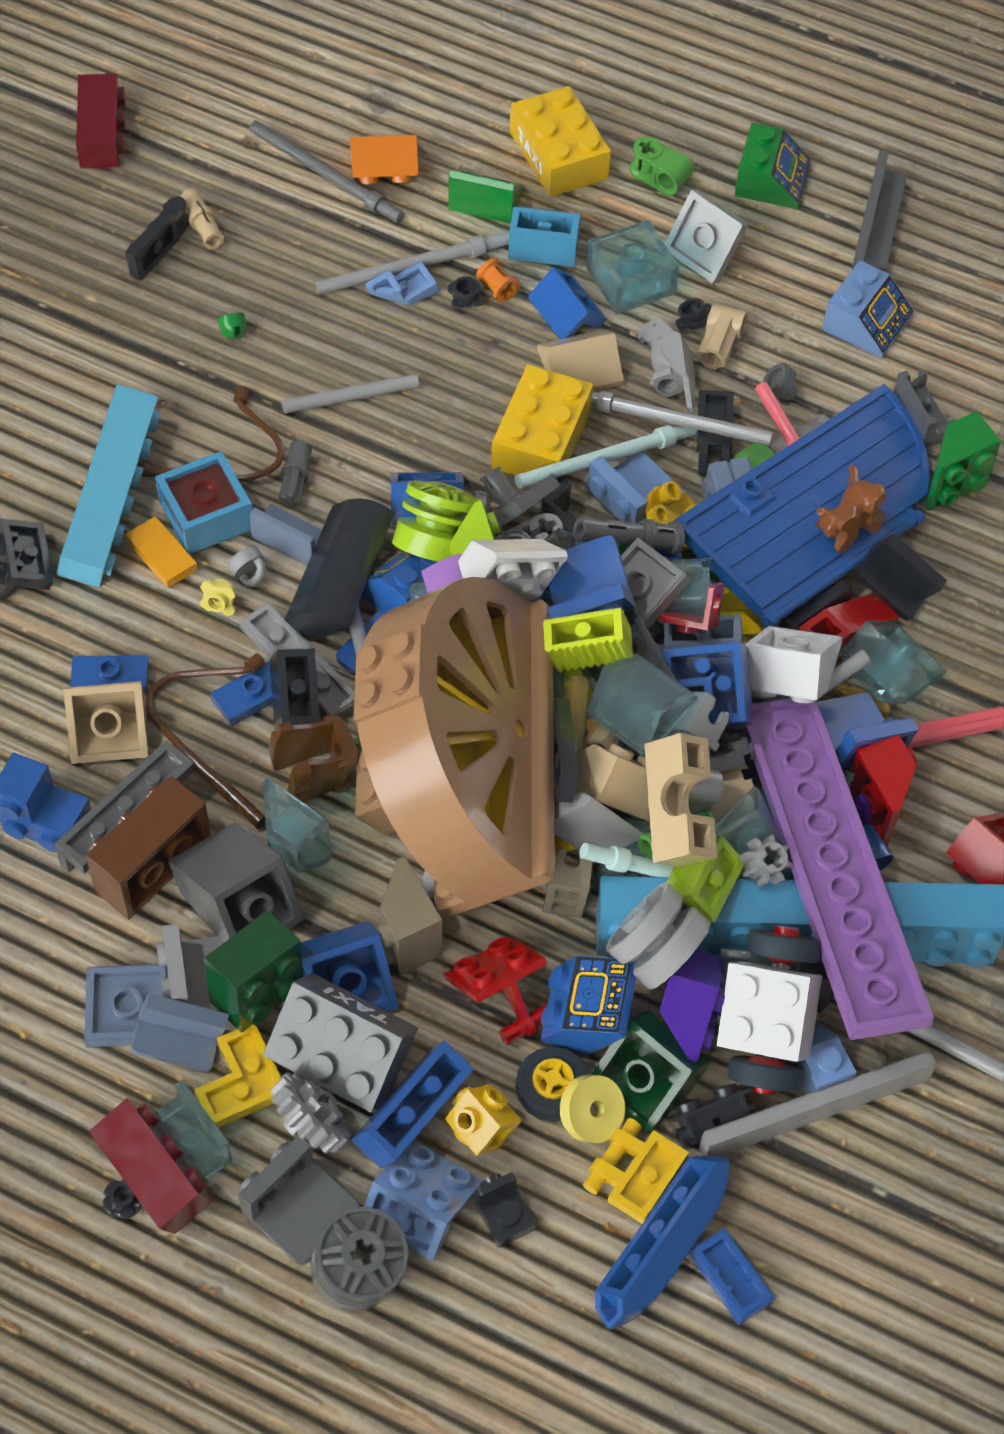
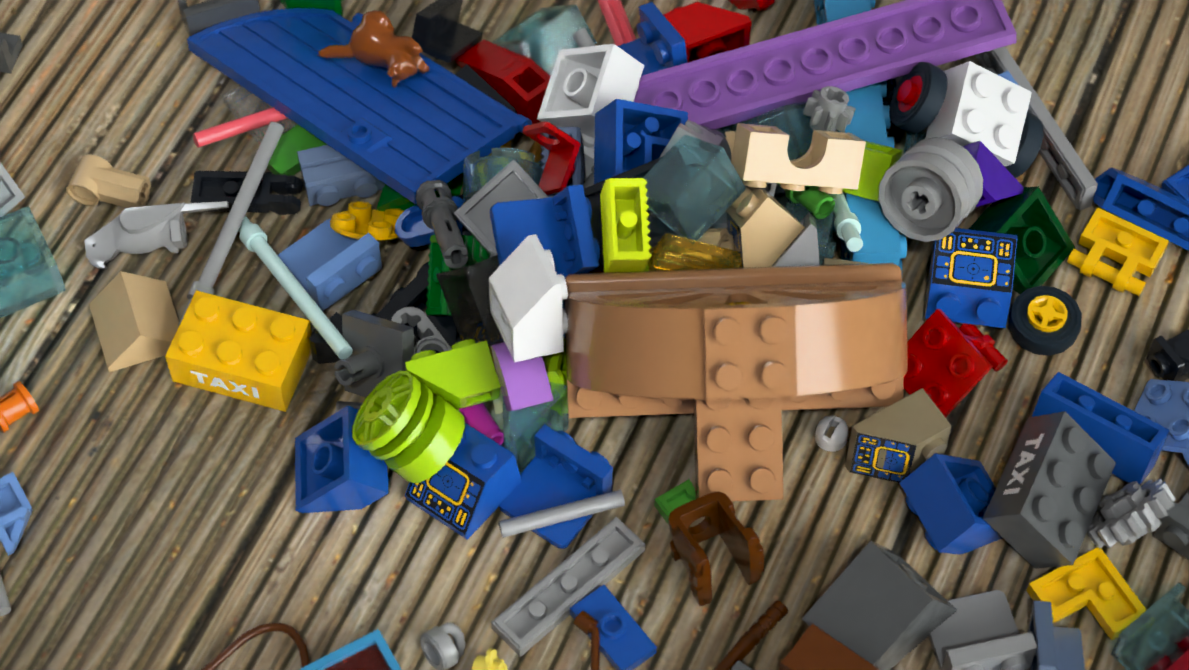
camera: 90 degrees left, 0 degrees up
(253, 971) = (995, 566): dark green brick -> none
(284, 532) = (394, 603): sand blue panel -> none
(294, 686) = (630, 568): black brick -> none
(295, 472) = (302, 609): dark grey axle -> none
(295, 829) = (815, 553): clear light blue slope -> none
(339, 568) = (453, 538): black brick -> none
(350, 393) = (176, 563): light grey bar -> none
(465, 292) = (22, 434): black plate -> none
(482, 1118) = (1101, 366): yellow brick -> none
(565, 303) = (53, 338): blue panel -> none
(565, 752) = (764, 249): black tile -> none
(576, 1108) = (1070, 282): light yellow piece -> none
(693, 314) = (65, 212): black plate -> none
(697, 1116) = (1062, 203): black hinge -> none
(782, 381) = (177, 131): dark grey tile -> none
(868, 310) = (78, 55): medium blue slope -> none

